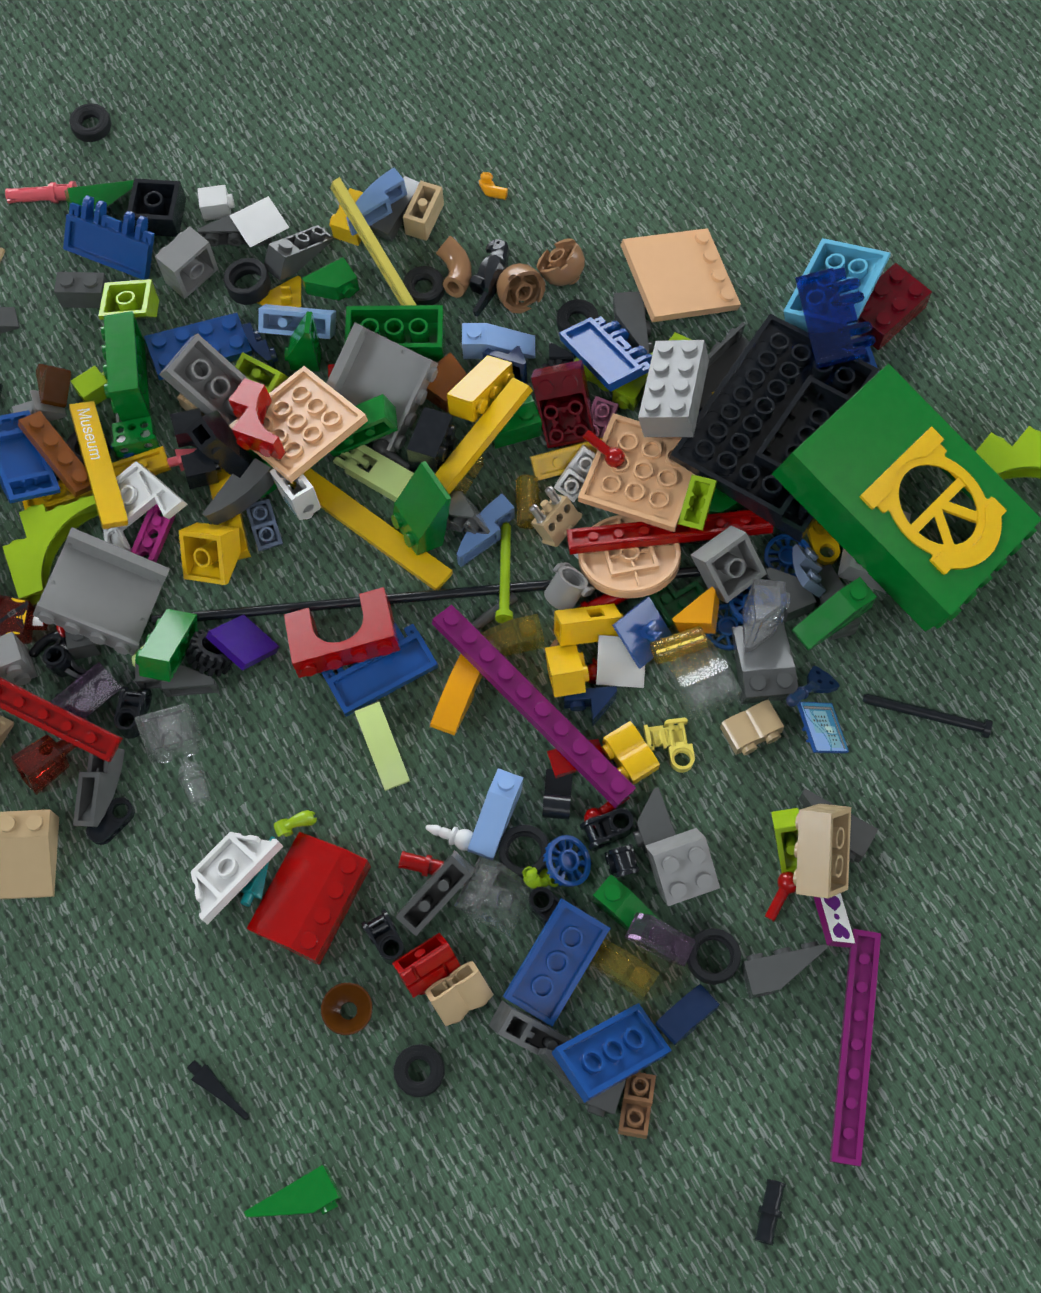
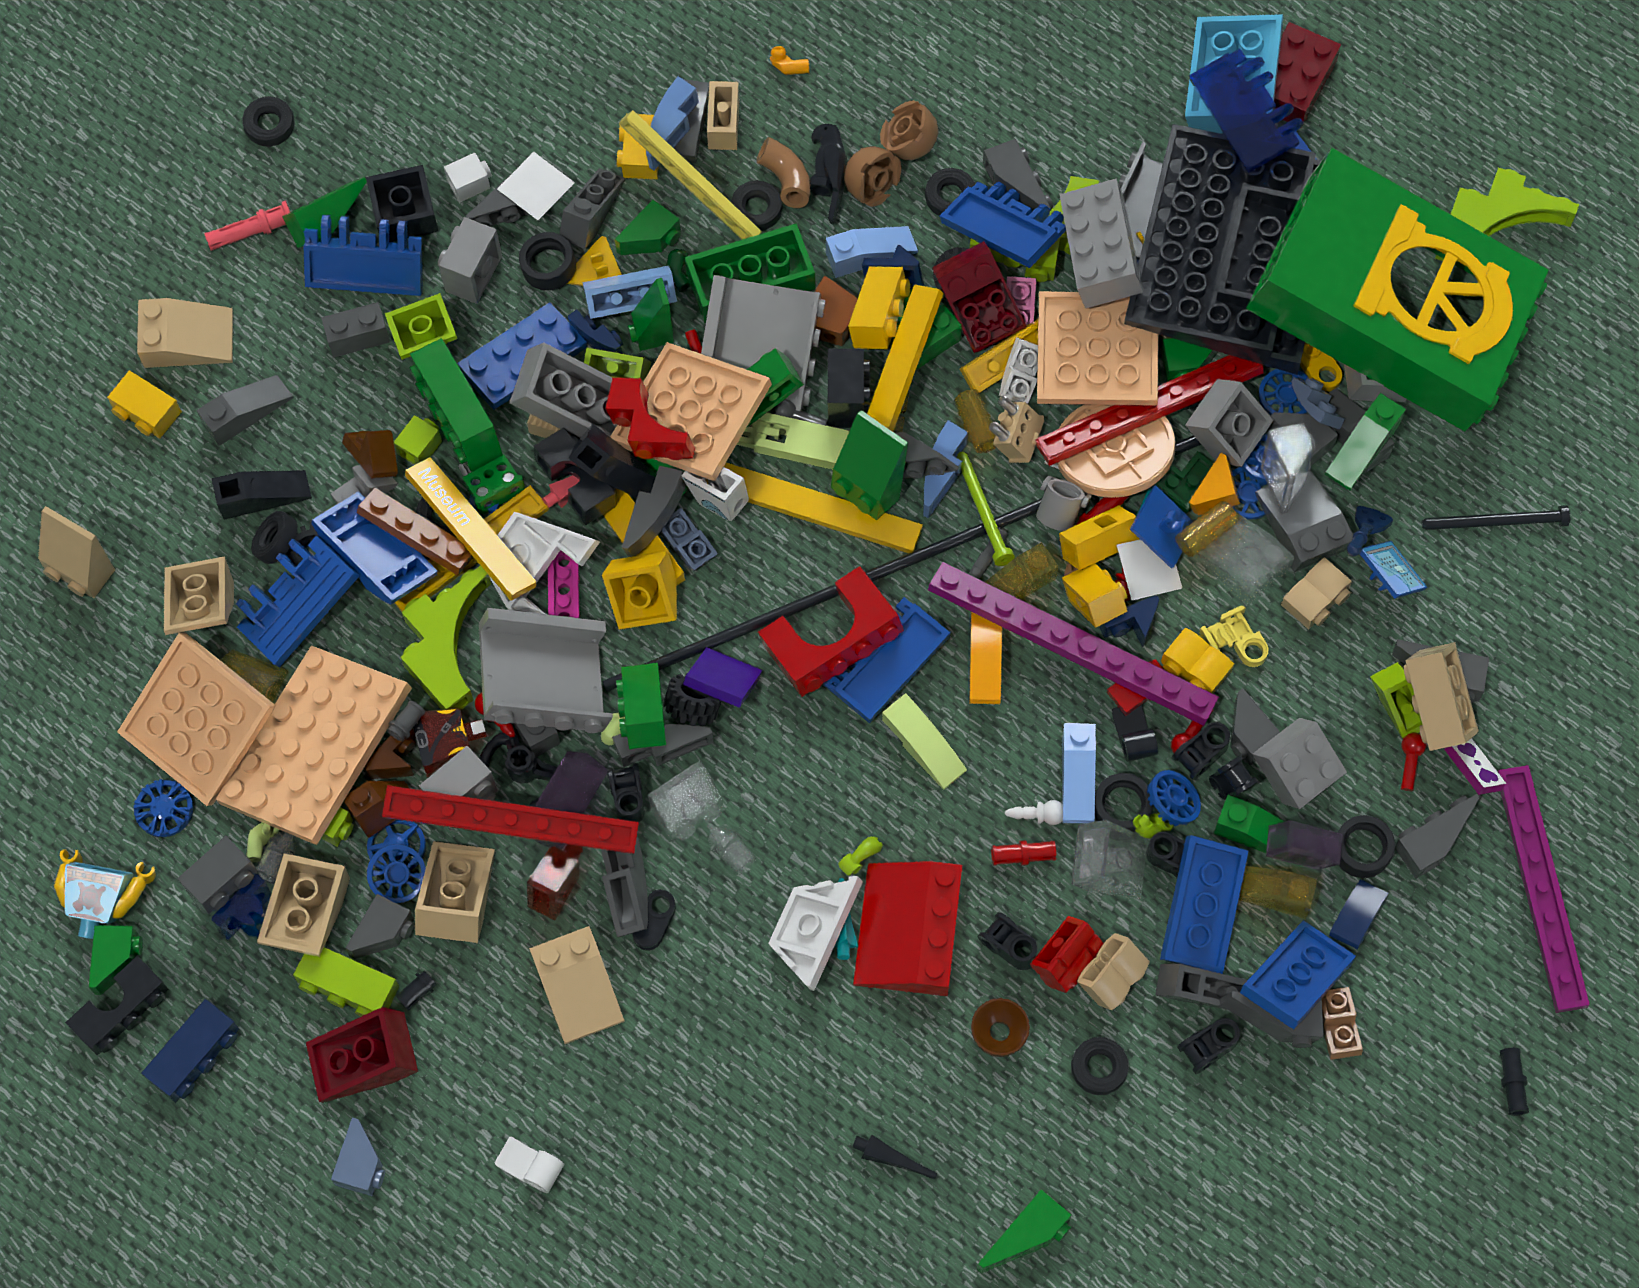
camera: 20 degrees left, 0 degrees up
(341, 316) = (675, 261): none -> dark green arm
(435, 893) = (1049, 875): dark grey brick -> none
(516, 1086) = (1205, 1048): none -> black piece
(557, 352) = (944, 241): black slope -> none
(613, 456) = (1060, 340): red bar -> none
(680, 275) = (1050, 106): light nougat plate -> none
(697, 502) = (1172, 364): lime slope -> none

